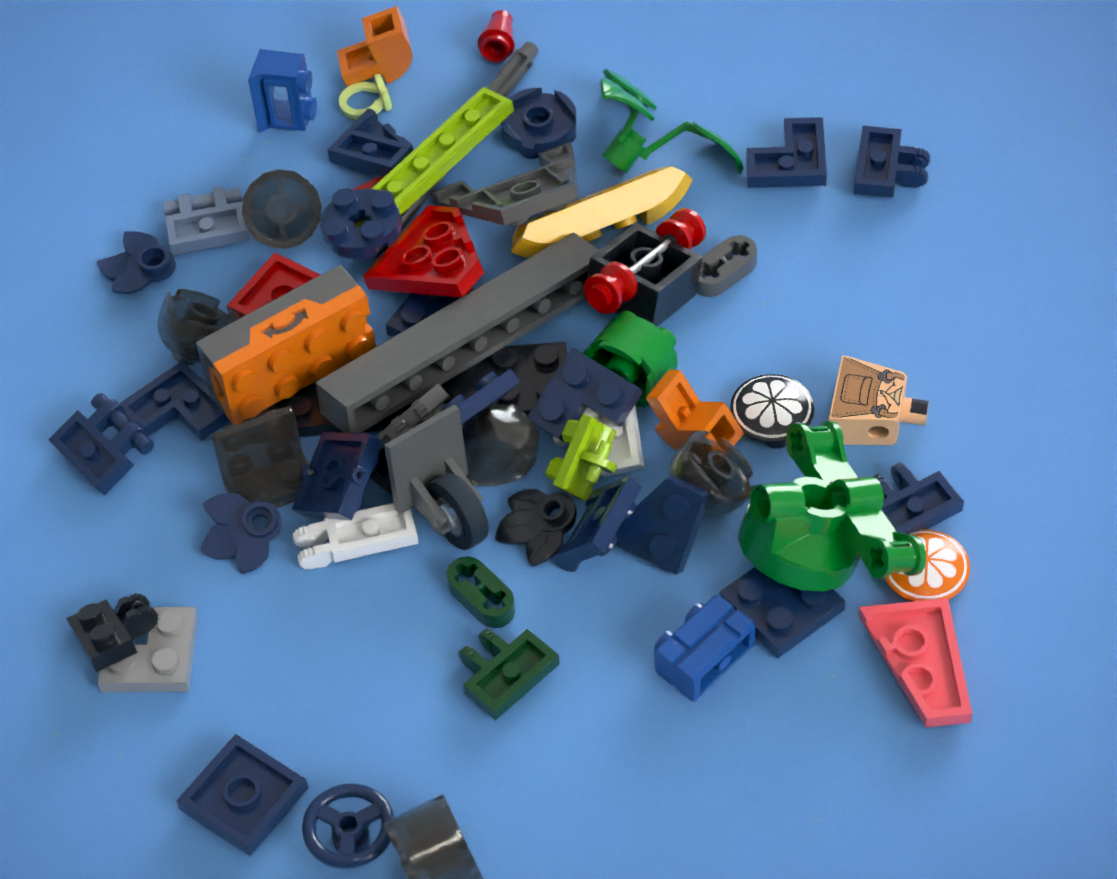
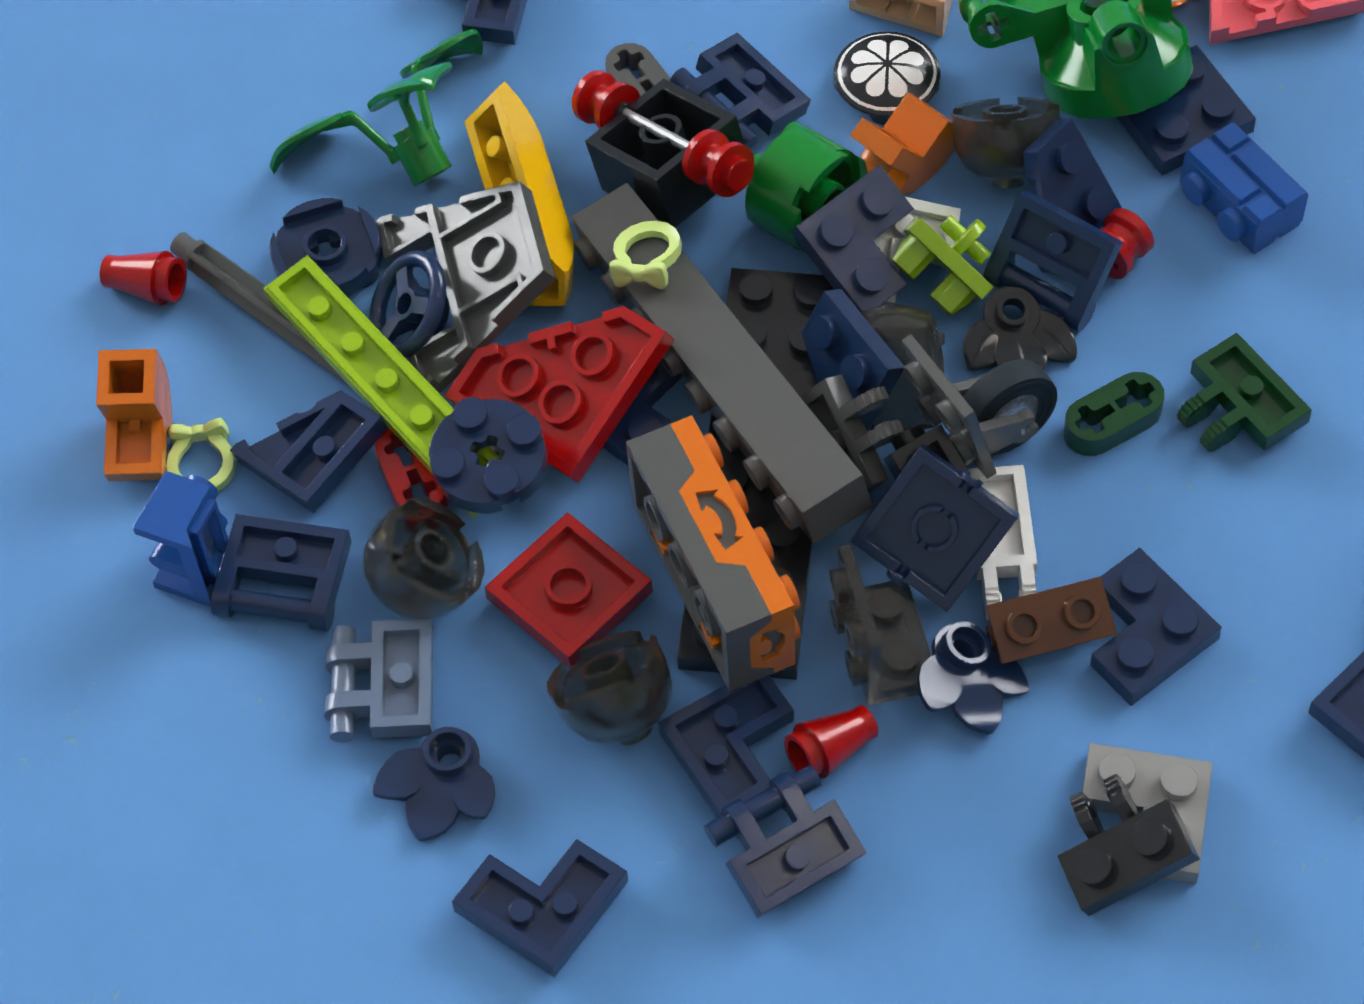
camera: 80 degrees left, 5 degrees up
(44, 329) = (547, 919): none -> dark blue plate
(179, 455) = (830, 739): none -> red cone
(285, 567) = (1050, 620): none -> reddish brown hinge
(292, 147) = (283, 555): none -> dark blue plate
(301, 646) = (1162, 629): none -> dark blue plate
(491, 169) = (414, 307): none -> dark blue piece
(521, 257) = (654, 272): none -> yellowish green piece
(632, 570) = (1135, 236): none -> red wheel
(733, 323) = (750, 82): none -> dark blue plate

